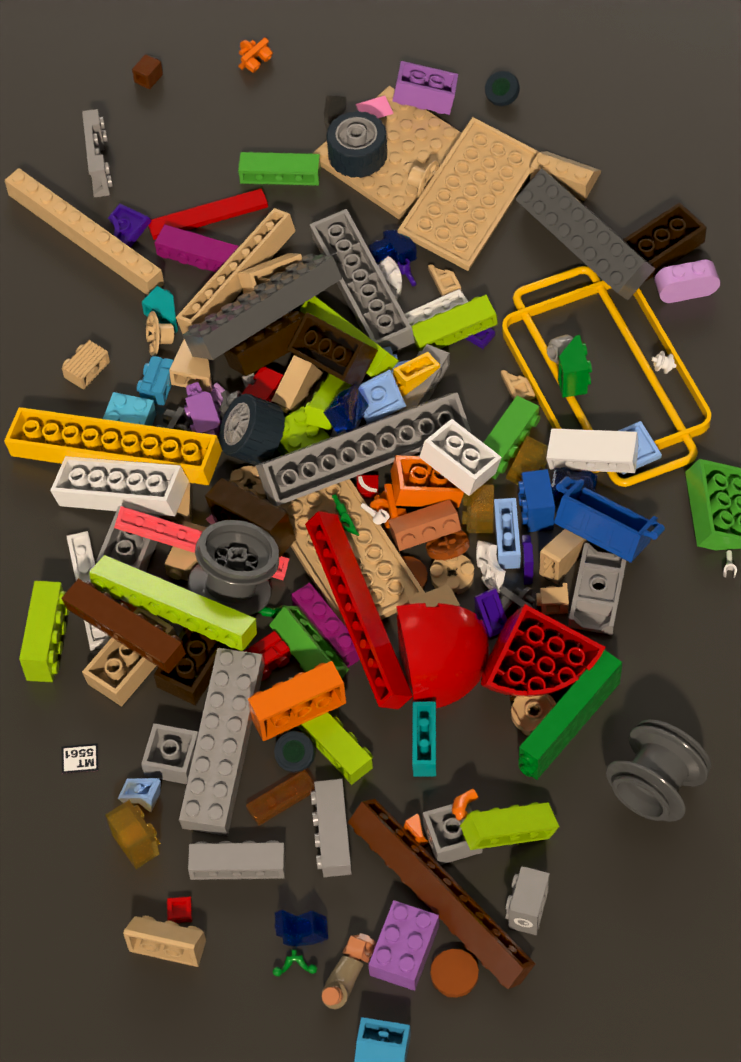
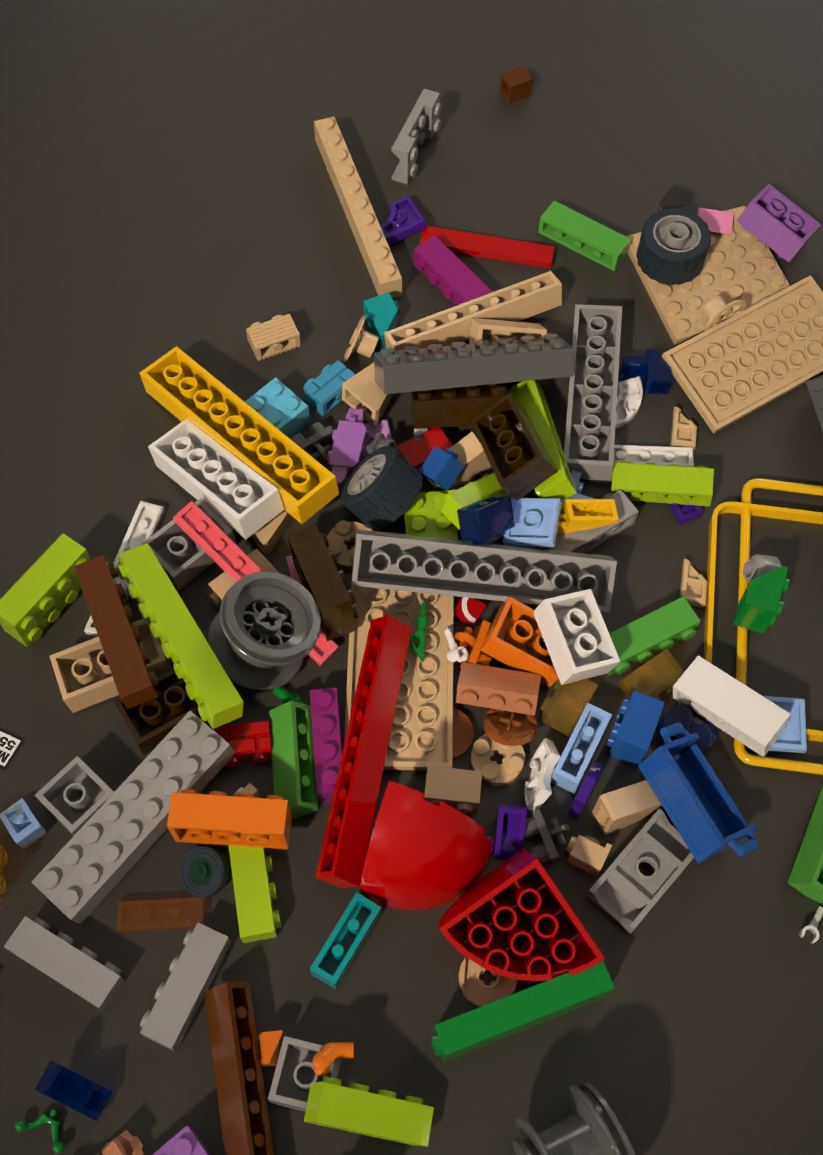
camera: 25 degrees right, 5 degrees up
(251, 53) = (628, 110): orange hips -> none
(287, 392) = (442, 467): none -> blue brick
(406, 270) = (649, 400): dark purple hand -> none

